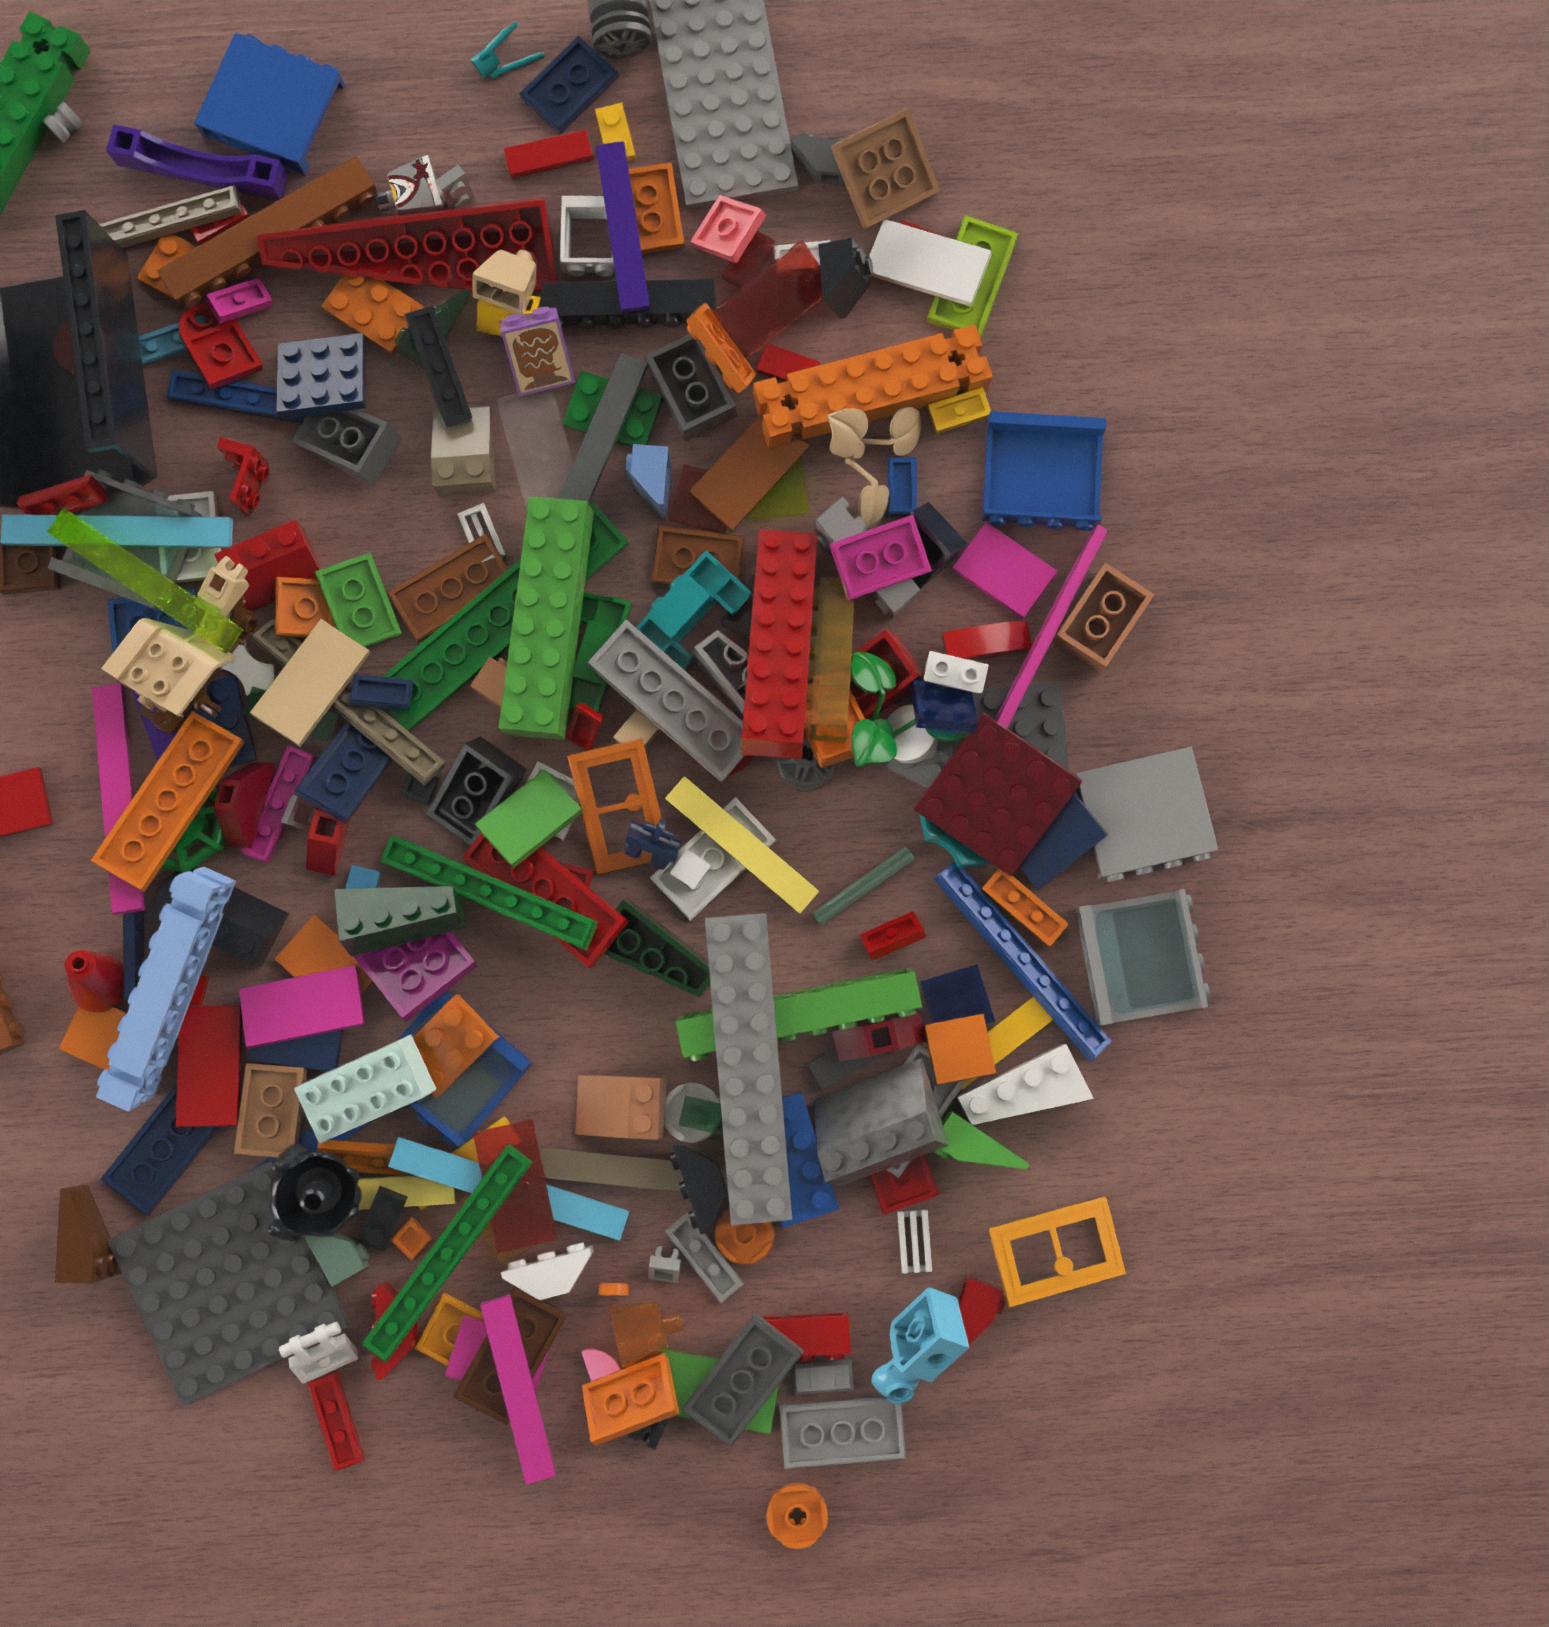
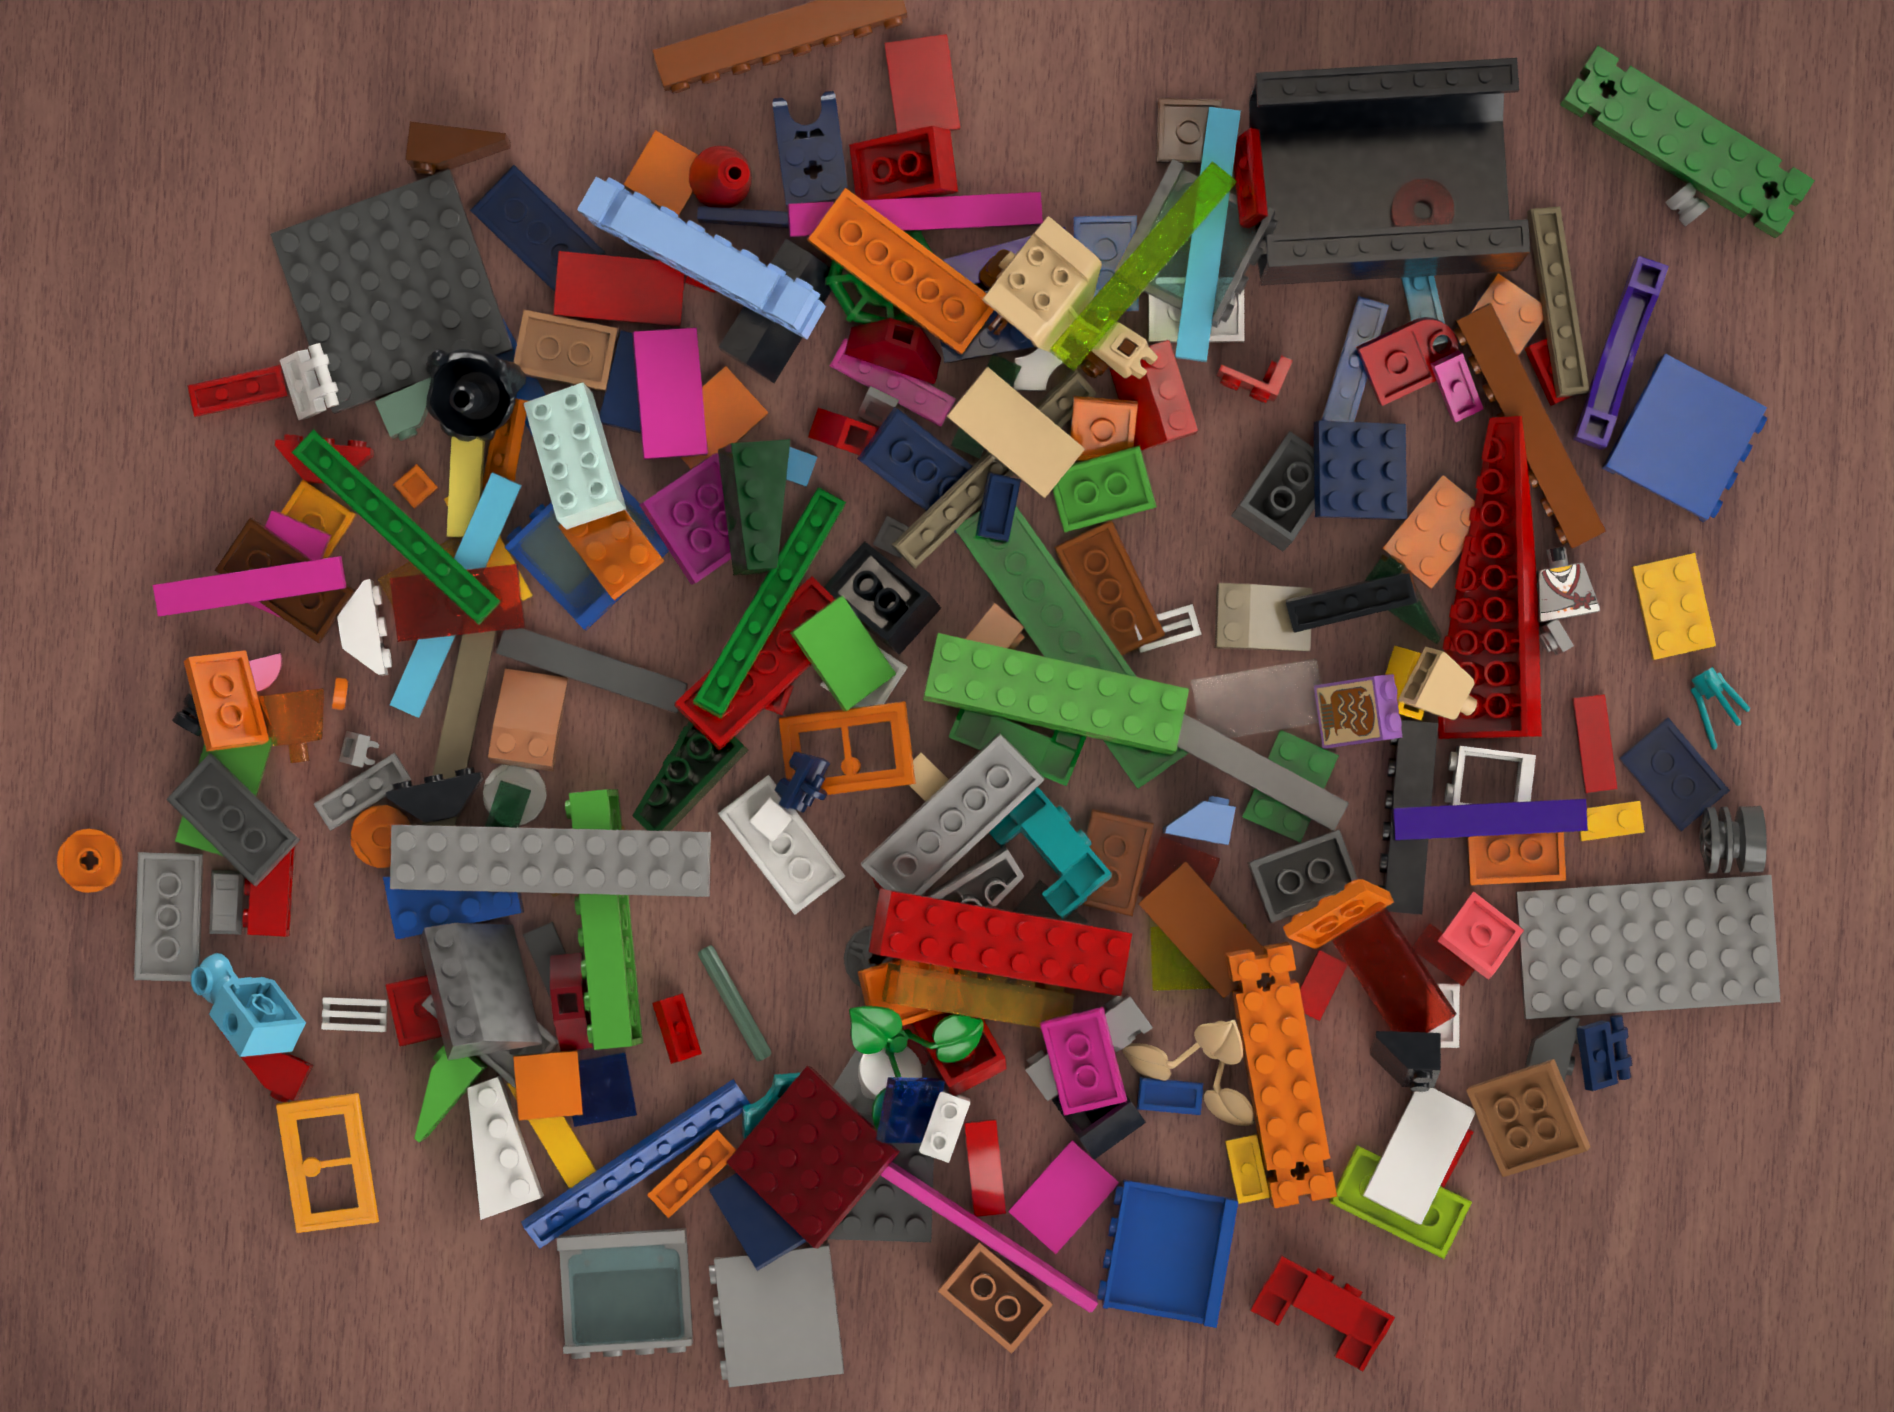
camera: 90 degrees right, 5 degrees up
(63, 902) = (810, 146): none -> dark blue brick
(71, 812) = (905, 165): none -> red slope
(382, 1218) = (439, 458): black plate -> none
(421, 100) = (1673, 606): none -> yellow plate
(567, 1053) = (591, 668): none -> dark grey tile
(584, 726) = (936, 722): red tile -> none
(742, 845) = (791, 878): light yellow tile -> none
(820, 113) = (1598, 1056): none -> dark blue plate
(1063, 338) = (1328, 1302): none -> red bracket

